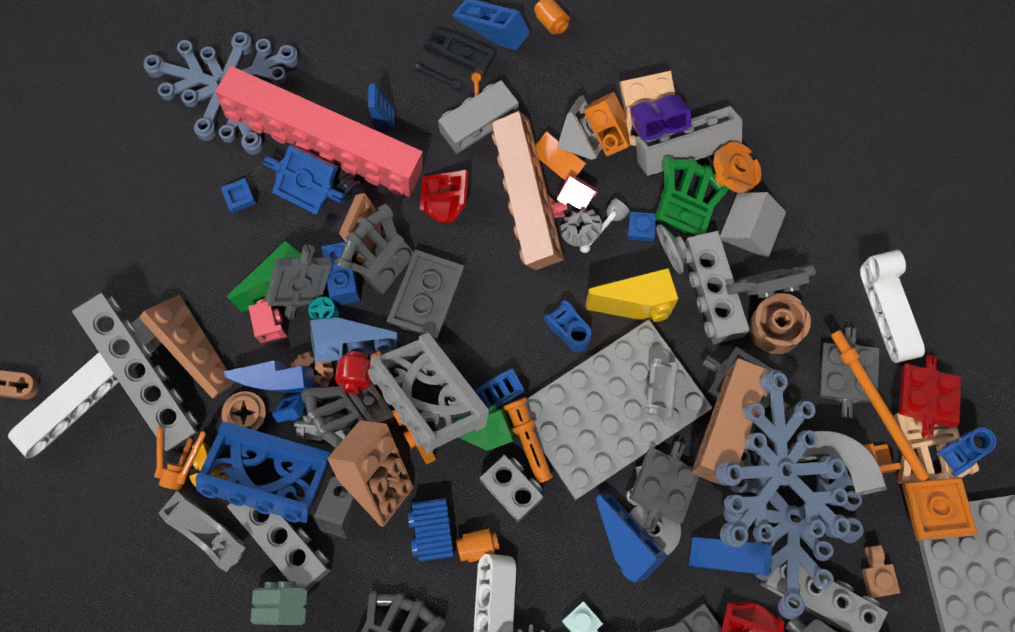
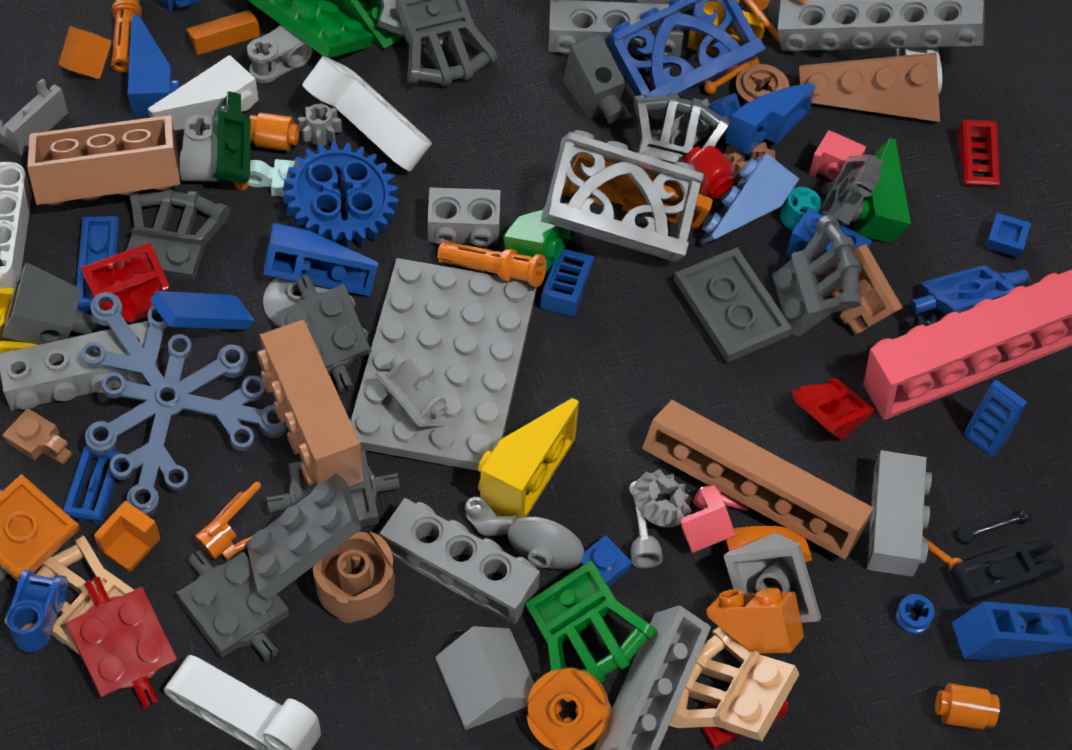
camera: 130 degrees right, 15 degrees down
(191, 262) = (982, 130): none -> red slope
(372, 469) = (602, 102): nougat slope -> none
(431, 530) = (497, 132): blue brick -> none
(476, 544) = (445, 153): orange brick -> none
(528, 67) = (926, 614): none -> blue bush
(565, 323) = (564, 386): blue piece -> none
(591, 587) = (372, 192): none -> blue gear
(660, 117) = (707, 663): dark purple brick -> none
(681, 305) = (485, 519): none -> light grey arm
(768, 282) = (404, 602): dark grey plate -> none
(779, 434) = (249, 408): sand blue plant -> none
(798, 357) = (302, 536): none -> dark grey plate
(825, 414) = (218, 535): none -> orange plant
(850, 357) = (244, 599): orange bar -> none
(861, 464) = (163, 492): light grey arch -> none
(887, 500) = (102, 505): none -> blue tile

